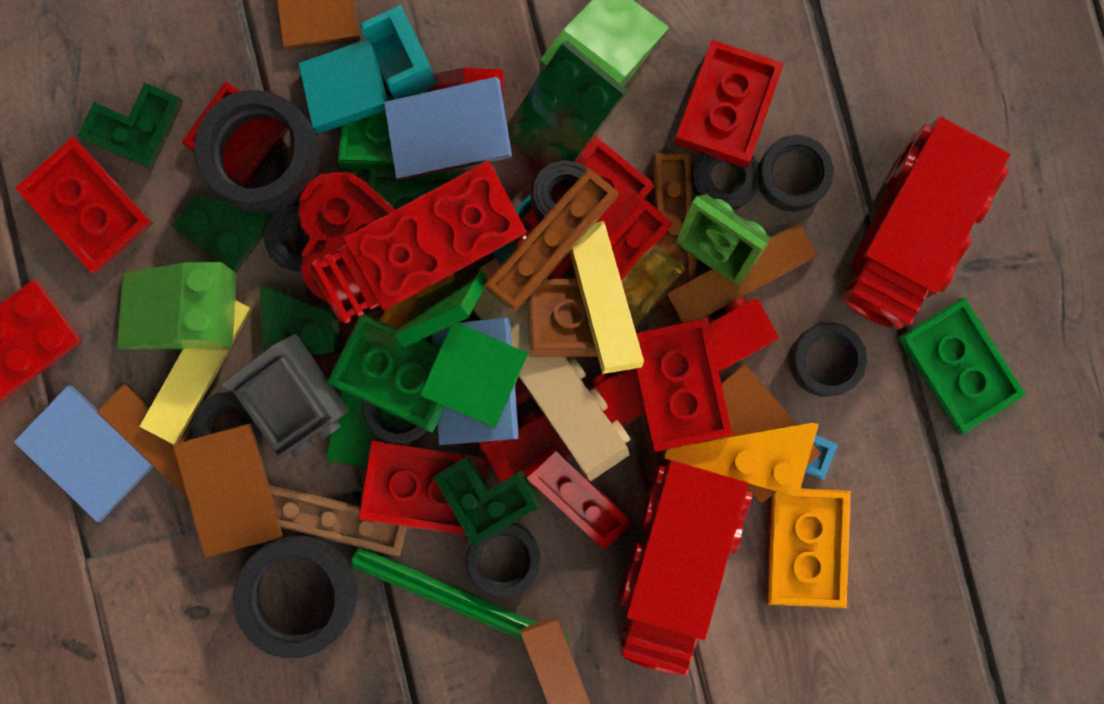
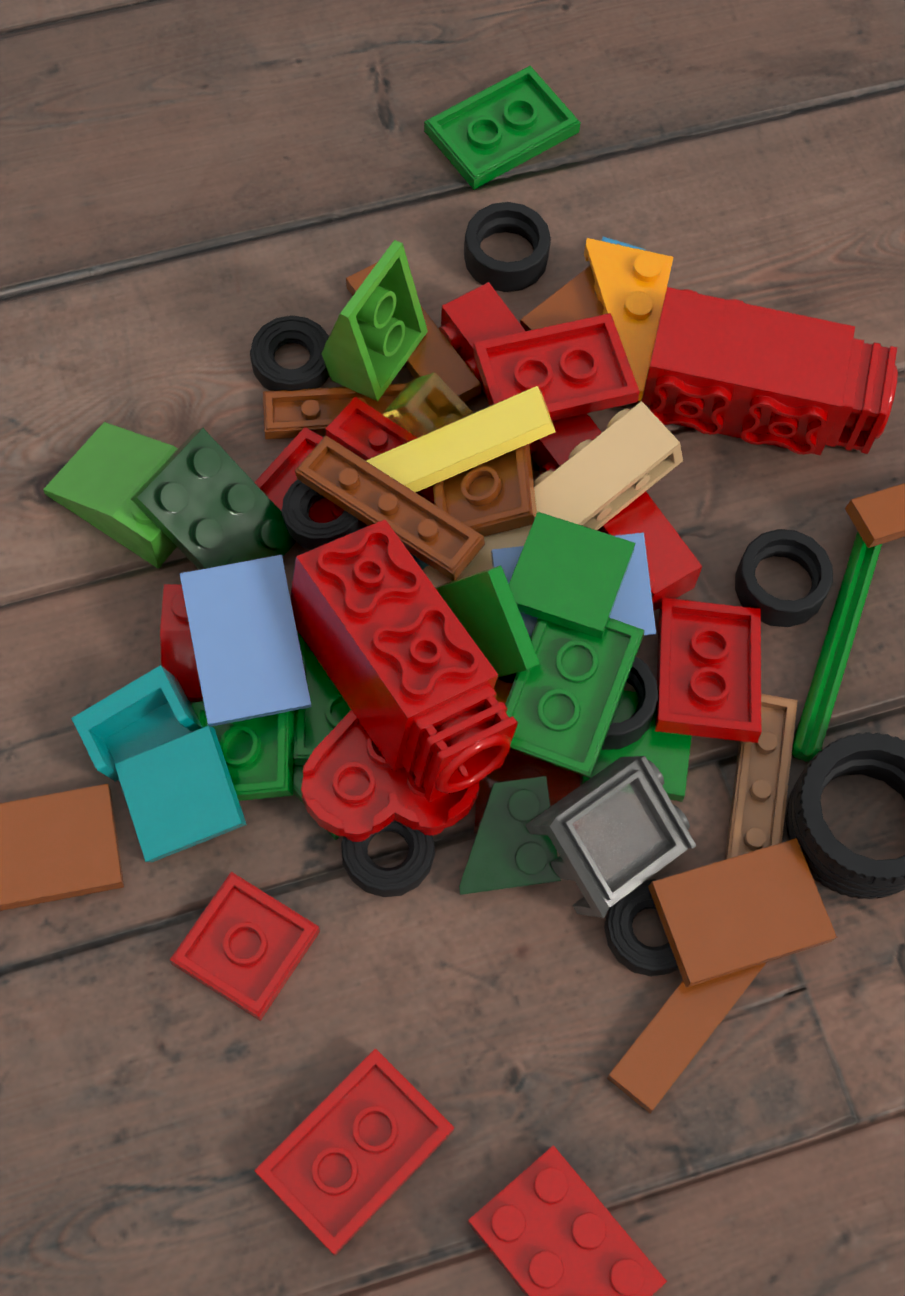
camera: 95 degrees left, 20 degrees down
(83, 453) = (711, 1129): medium blue tile -> none
(140, 134) = (251, 1082): dark green plate -> none
(178, 307) = (498, 1001): bright green slope -> none
(188, 385) = (578, 974): light yellow tile -> none
(222, 123) = (266, 824): black tyre -> none
(222, 229) = (378, 951): dark green wing -> none
(483, 509) = (730, 584): dark green plate -> none
(577, 497) = (699, 487): red plate -> none
(729, 103) = (204, 345): red plate -> none
(809, 548) = (730, 261): light orange tile -> none
(819, 156) = (280, 254): black tyre -> none
(924, 222) = (347, 148): red piece -> none

